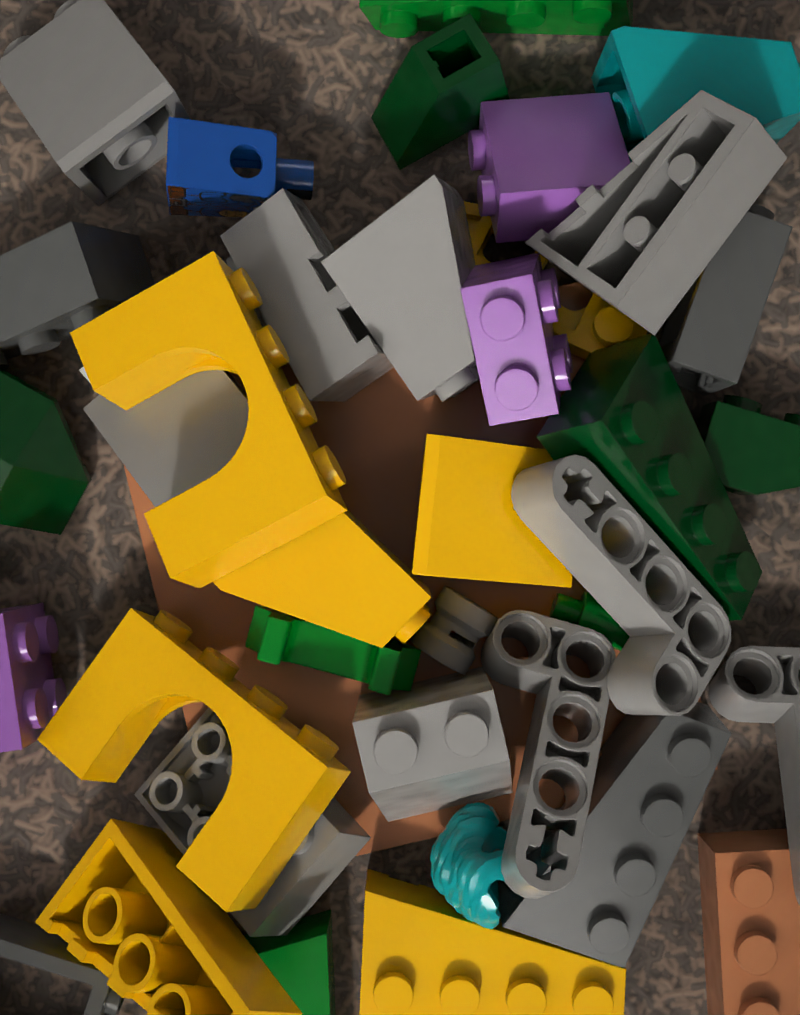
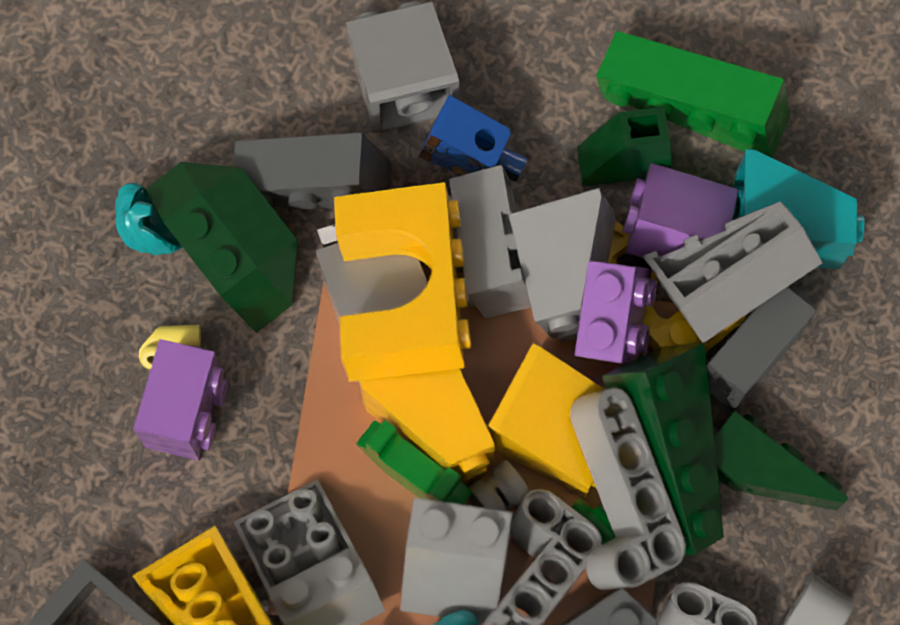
camera: 25 degrees right, 15 degrees down
(277, 775) = (346, 526): yellow arch -> none

